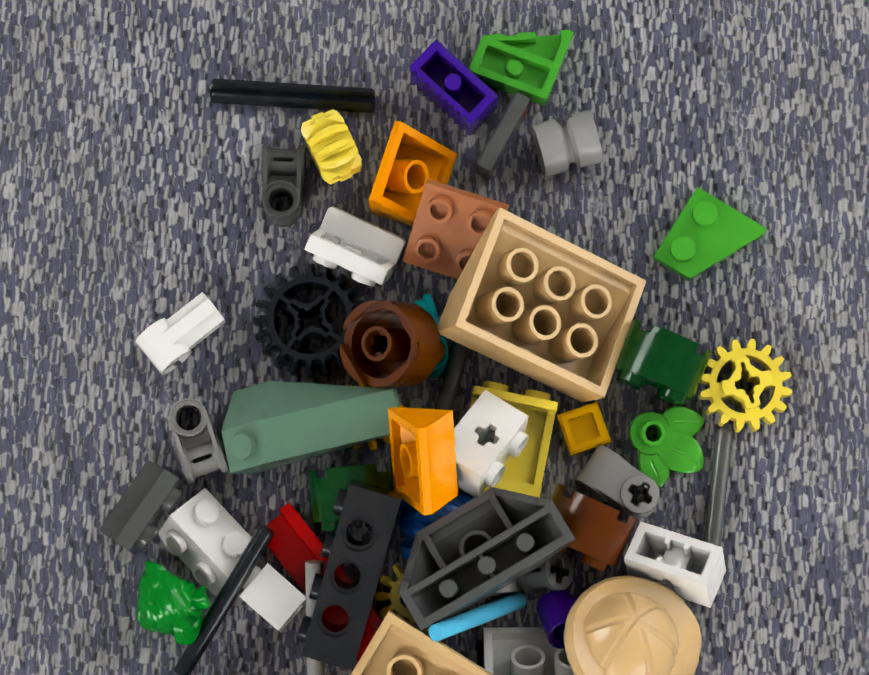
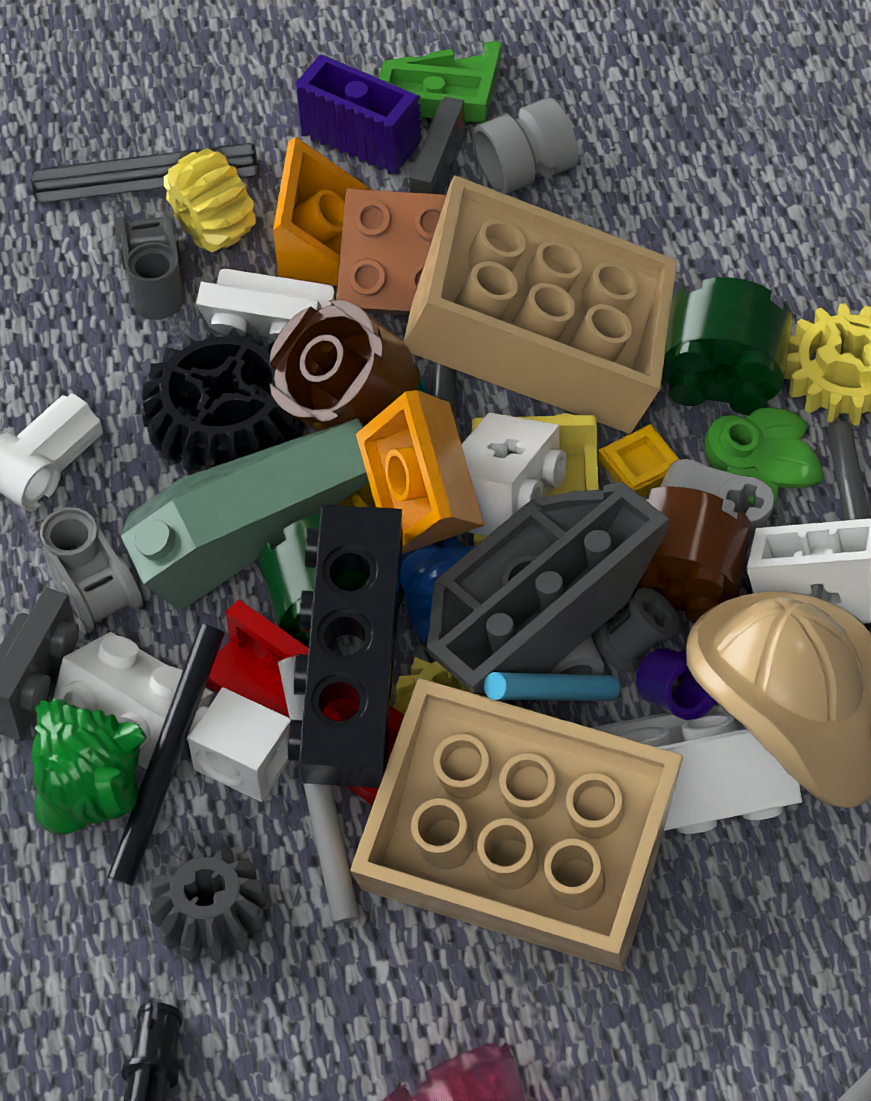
camera: 10 degrees left, 25 degrees down
(705, 235) = (739, 219): bright green wing -> none

